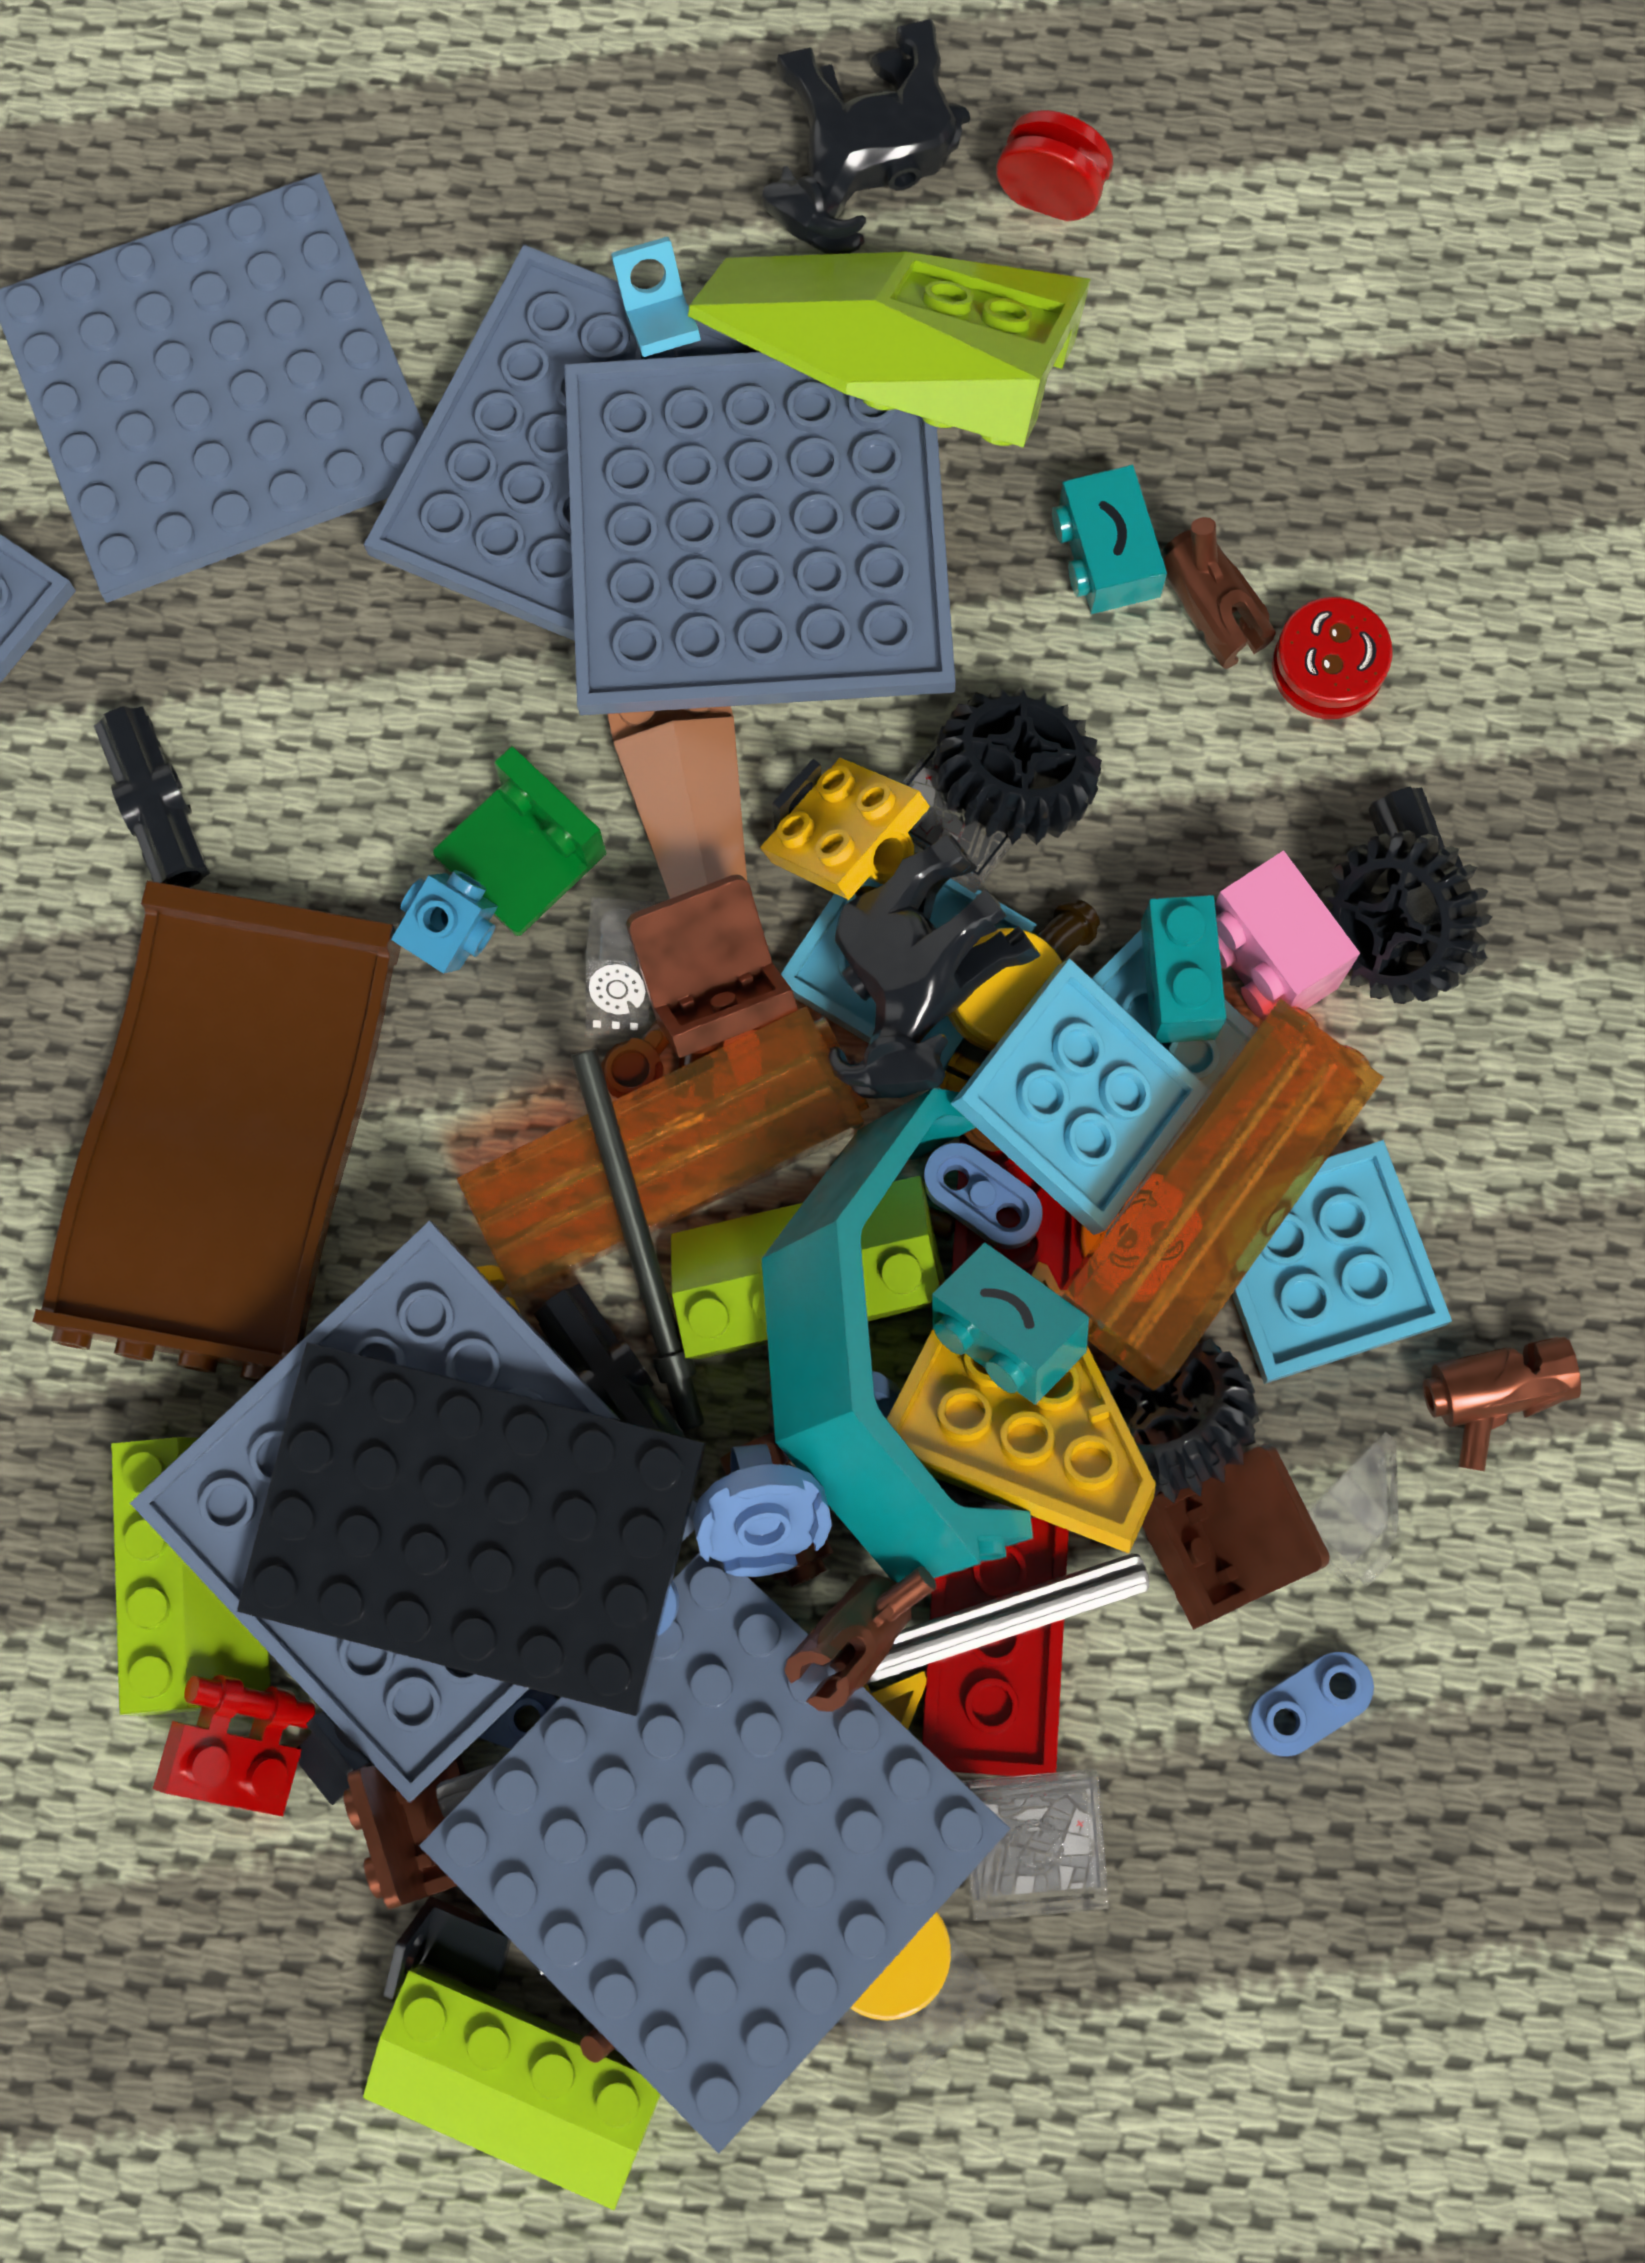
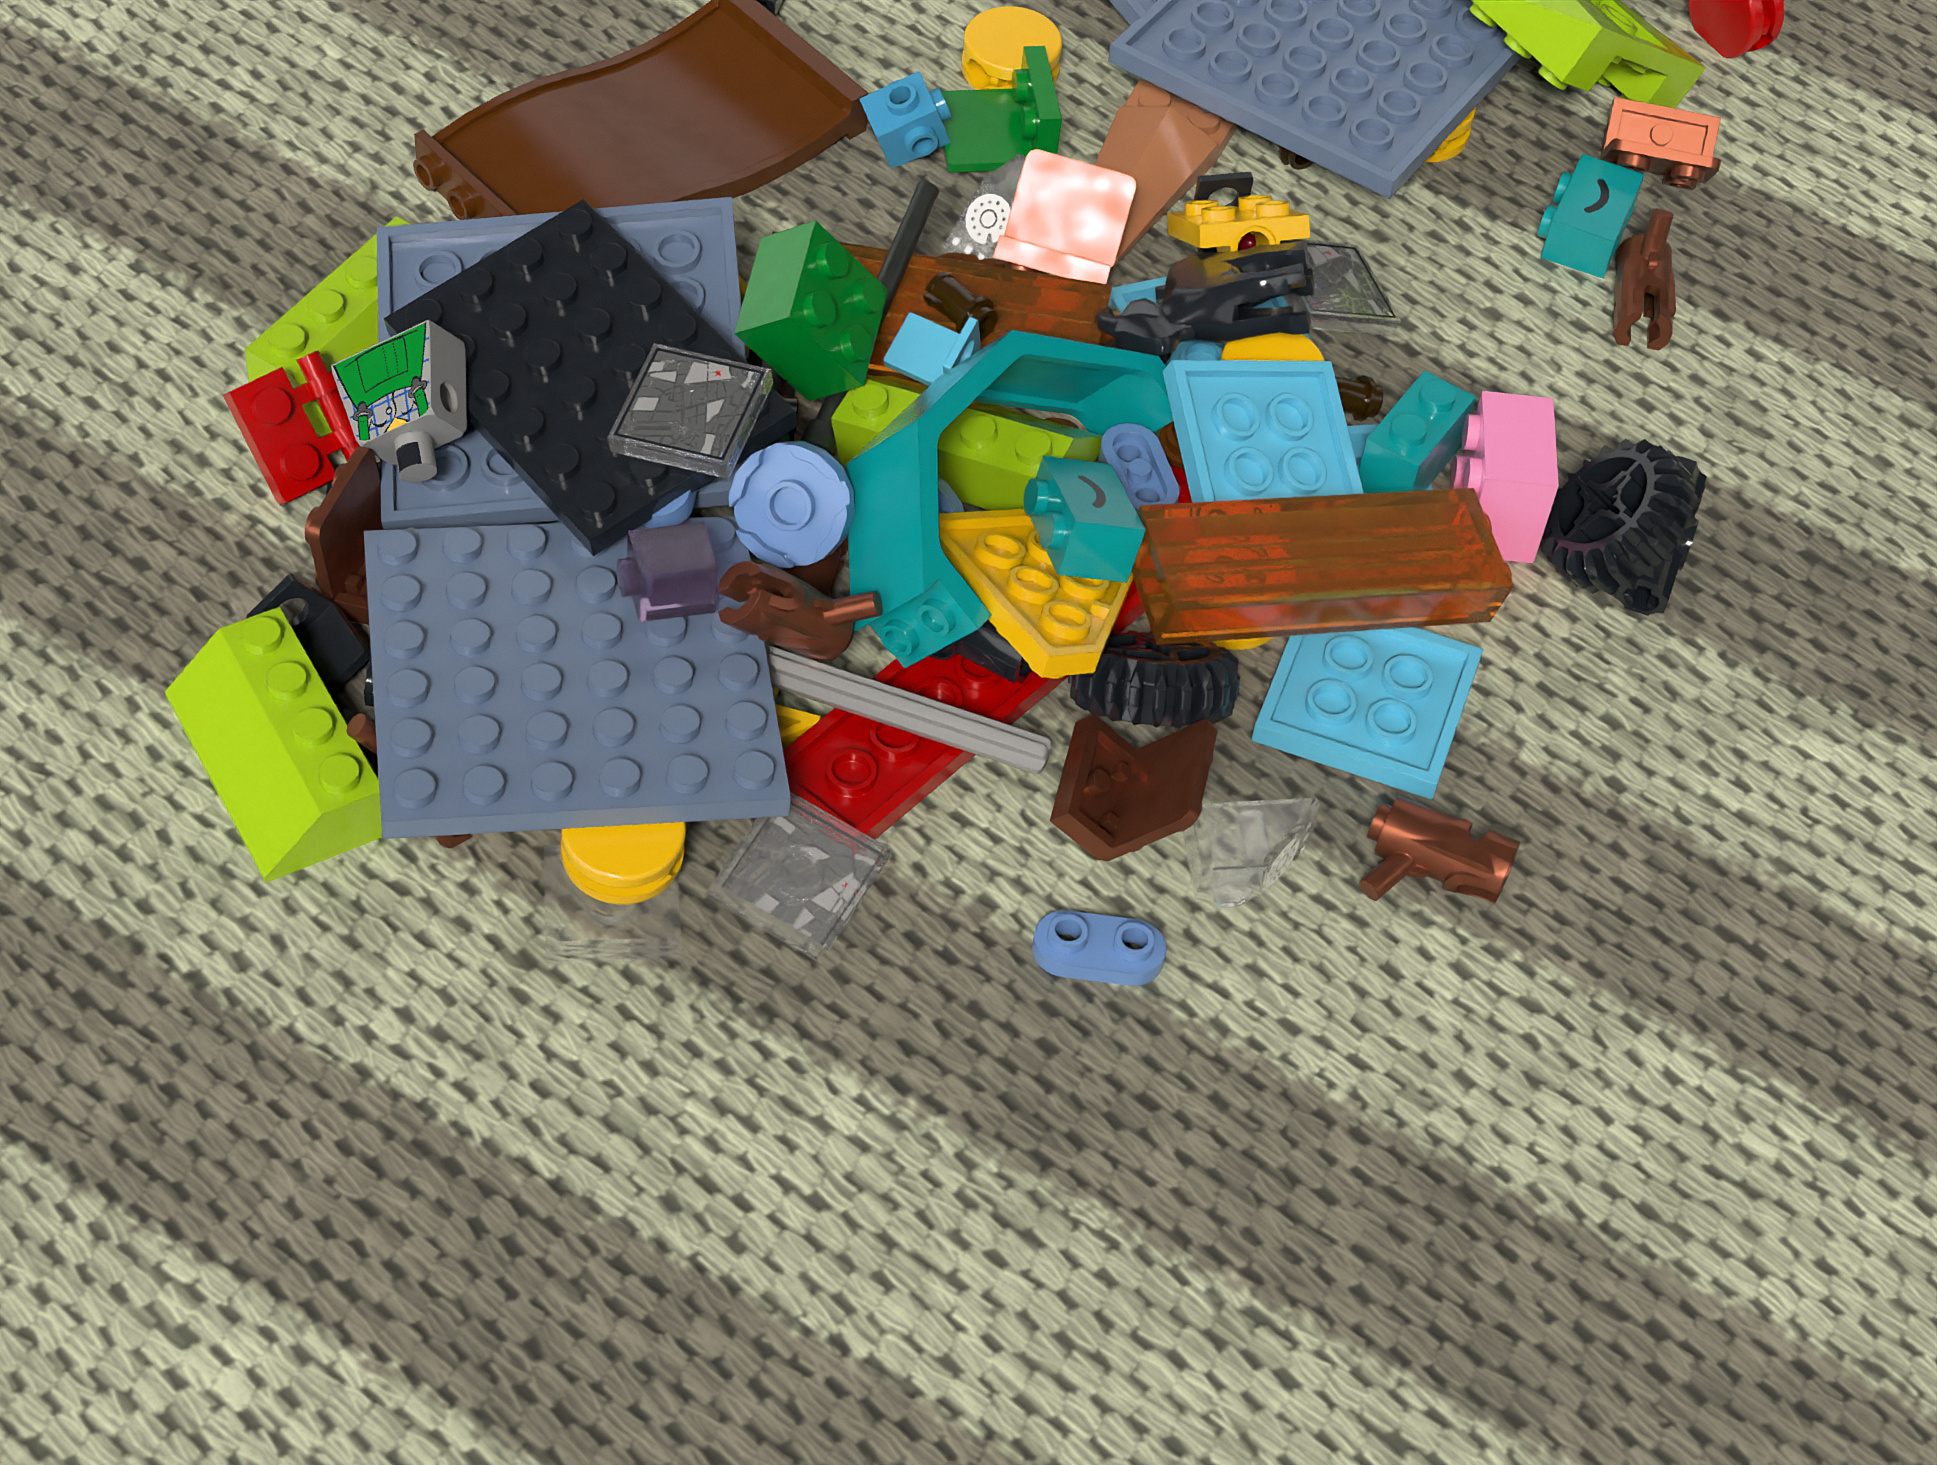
camera: 30 degrees right, 25 degrees down
(347, 1699) = (406, 397): none -> torso
(454, 744) = (996, 44): none -> yellow head
(598, 1284) = (811, 311): none -> green brick
(623, 1530) = (690, 410): none -> tile
(703, 1147) = (959, 304): none -> dark brown pin
(718, 1216) = (930, 350): none -> medium azure bracket
(732, 1696) = (669, 572): none -> clear purple brick
(1016, 765) = (1400, 277): black gear -> none
(1114, 407) = (1662, 142): none -> bracket
(1332, 657) = (1704, 374): red head -> none

